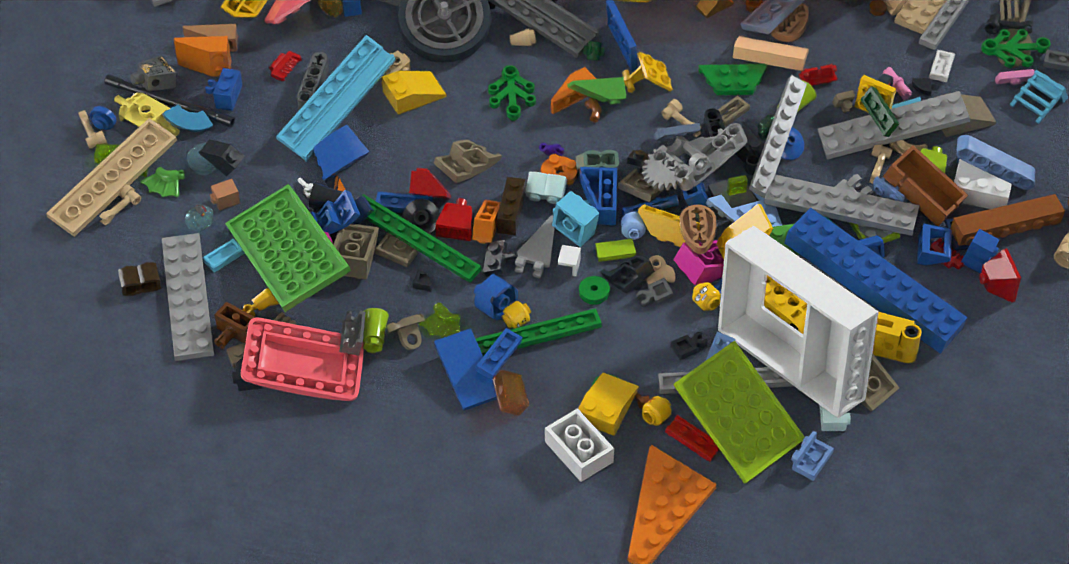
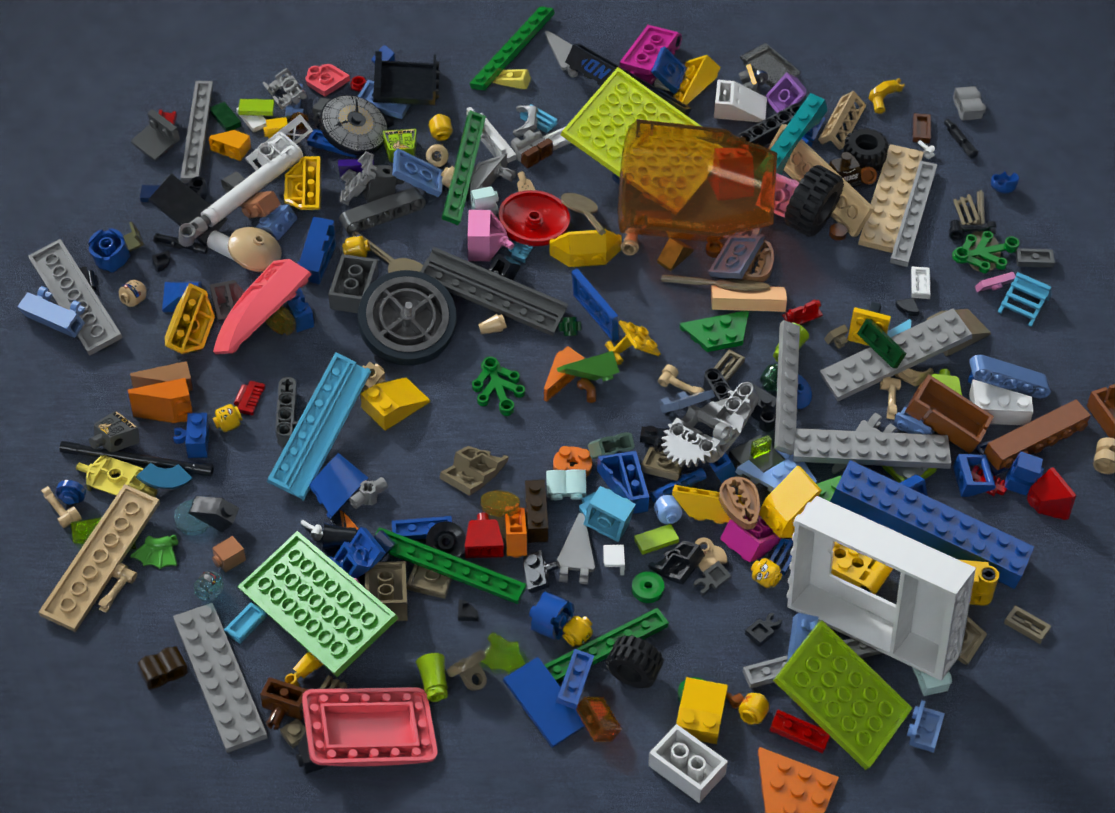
camera: 15 degrees left, 0 degrees up
(258, 79) = (227, 418): none -> yellow head
(352, 333) = (413, 685): dark grey hinge -> none
(364, 164) = (368, 492): none -> light grey axle
(426, 184) = (444, 505): red slope -> none
(480, 193) = (500, 503): none -> clear yellow tile
(551, 149) = (558, 441): dark purple arm -> none
(557, 349) = (634, 662): none -> black tyre
(760, 38) = (735, 284): none -> dark tan piece
(898, 83) = (885, 309): bright pink pin -> none
(939, 389) = (1026, 627): none -> dark tan tile

